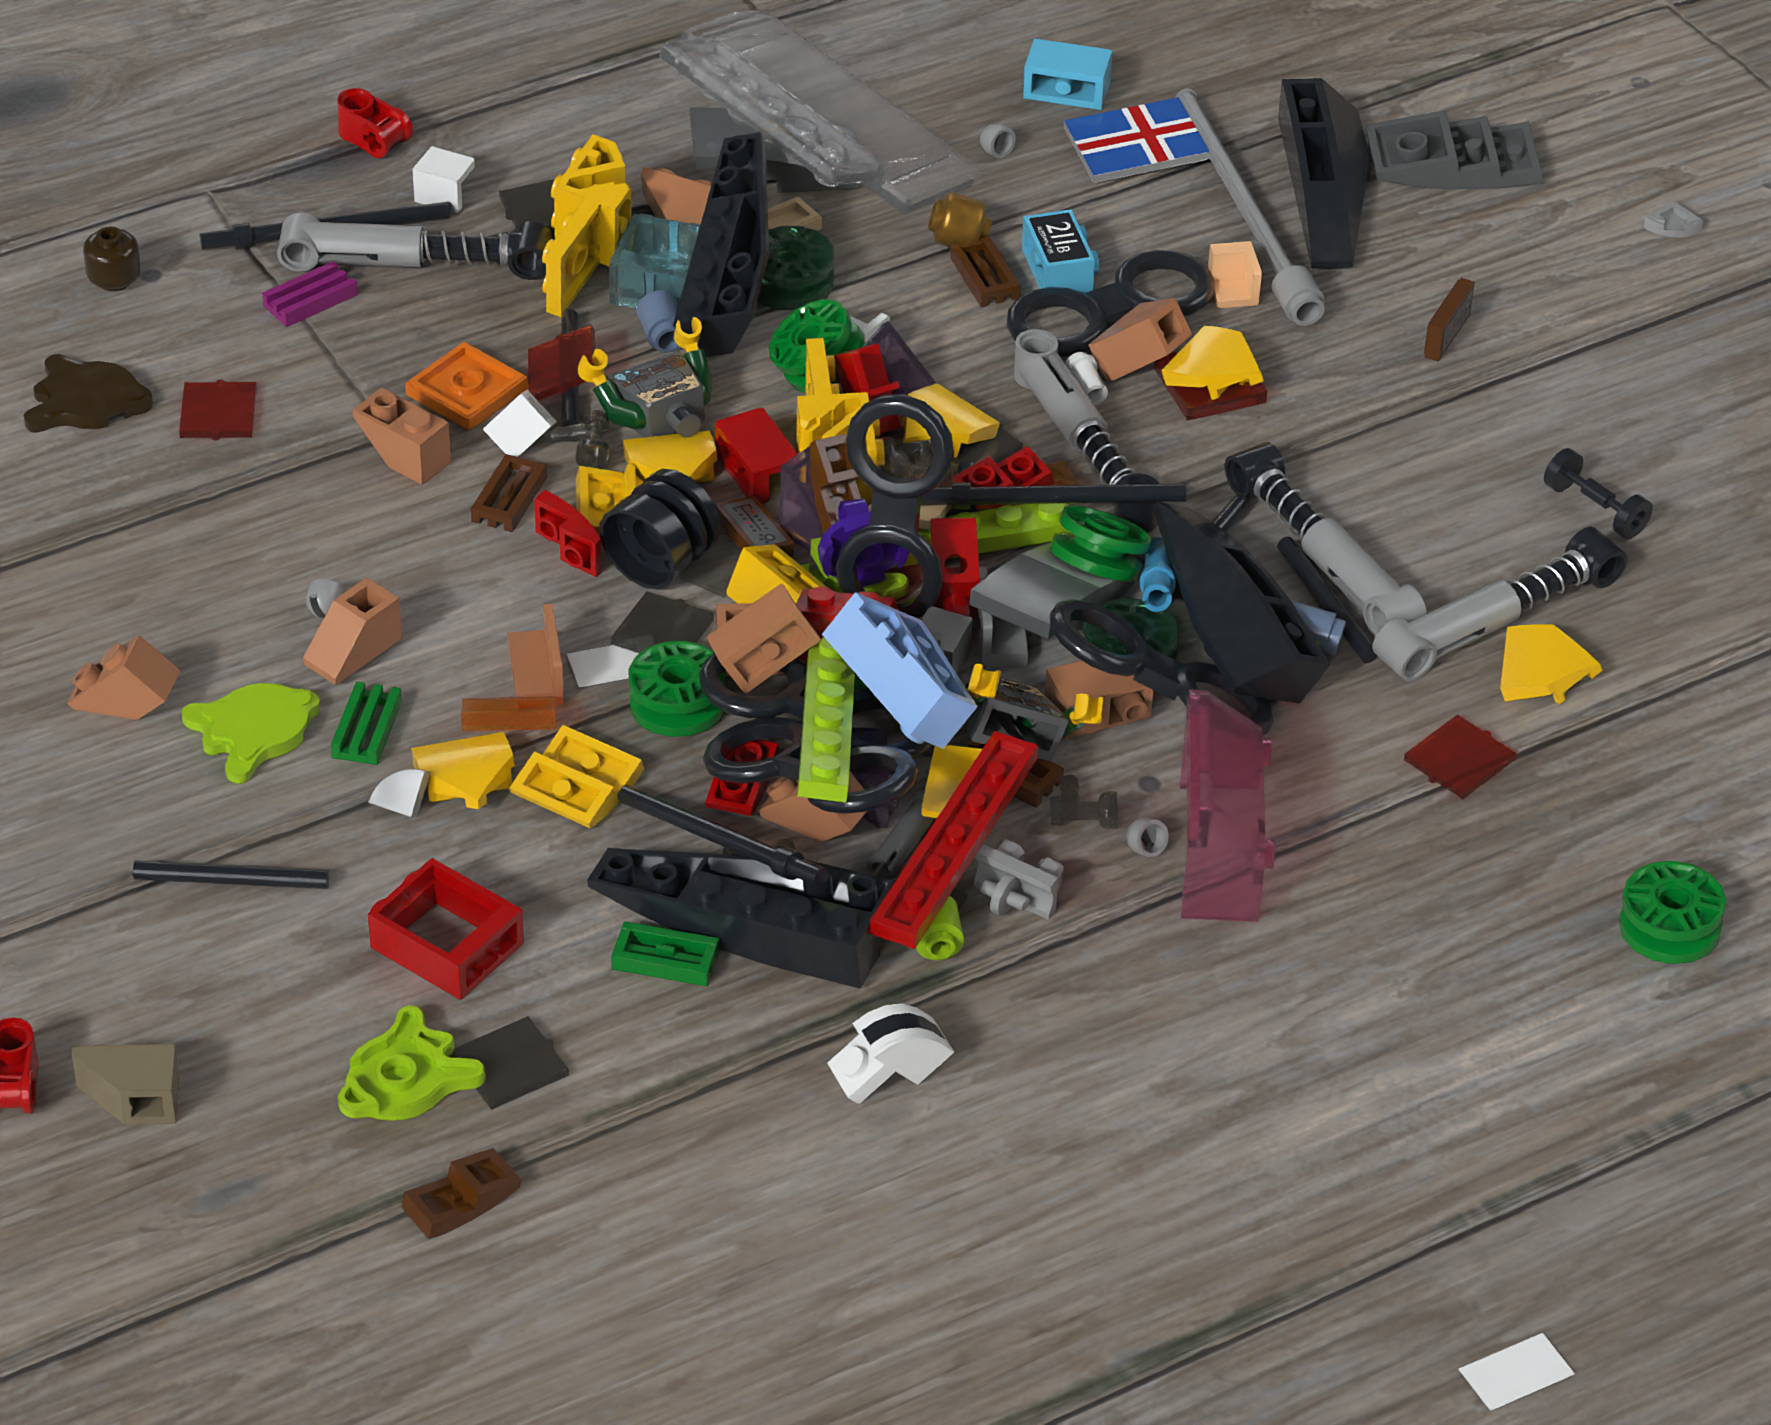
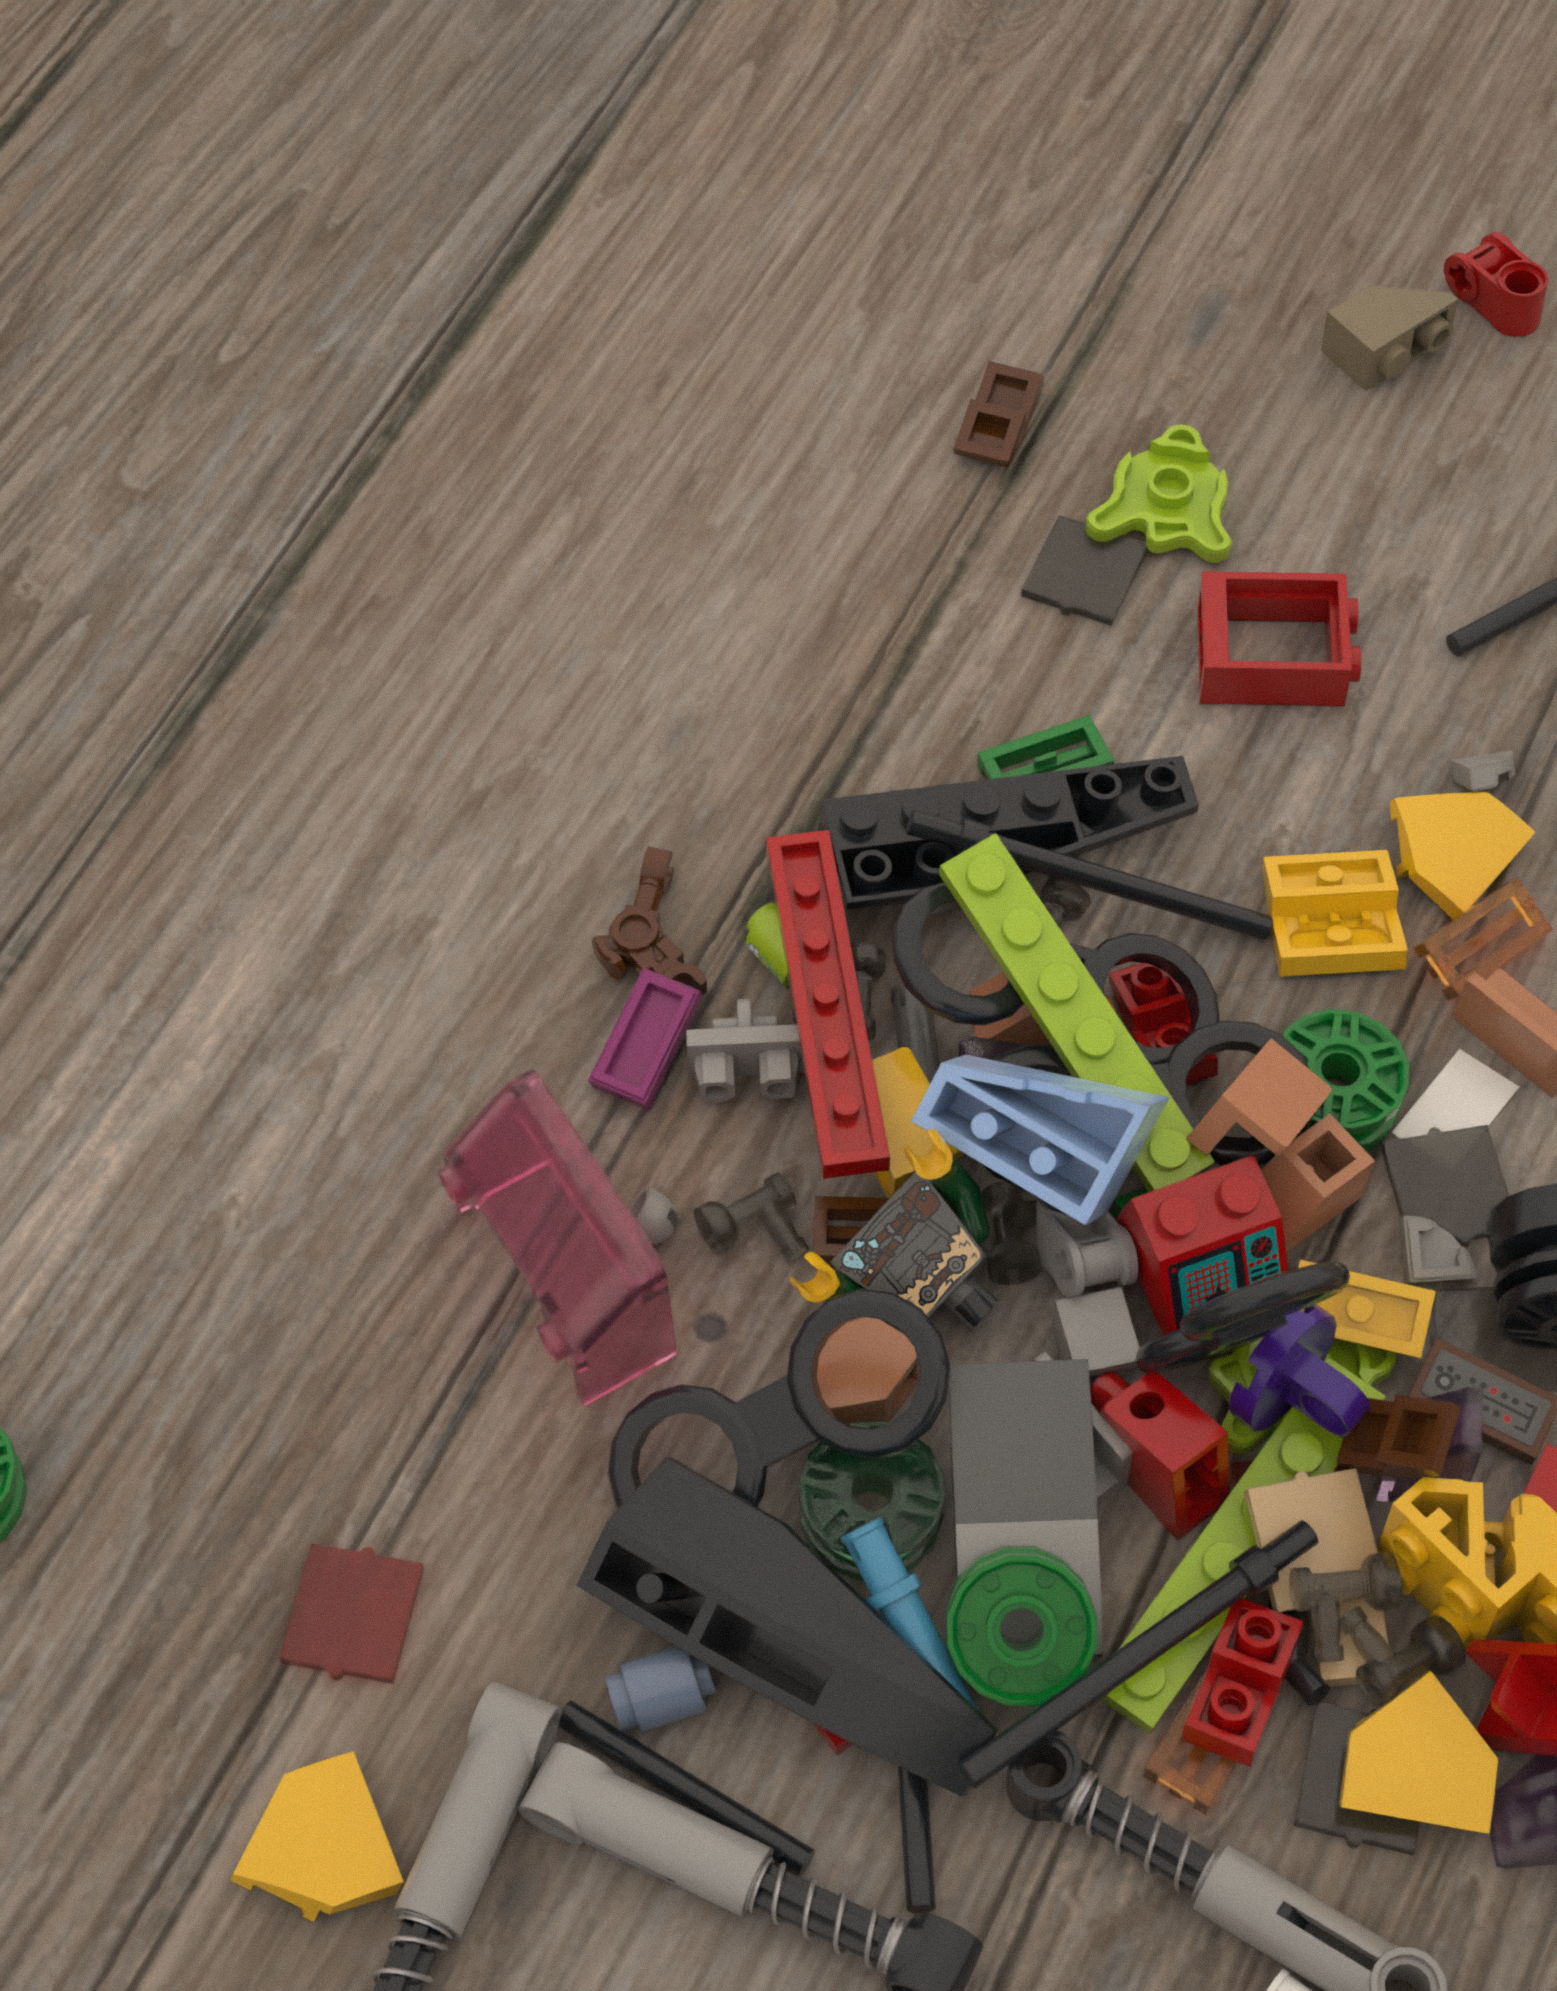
camera: 150 degrees right, 15 degrees up
(705, 596) = (1432, 1253): none -> light grey tile
(889, 1042) = (707, 757): white brick -> none
(1025, 993) = (637, 931): none -> reddish brown piece
(1071, 925) = (645, 1038): none -> magenta tile

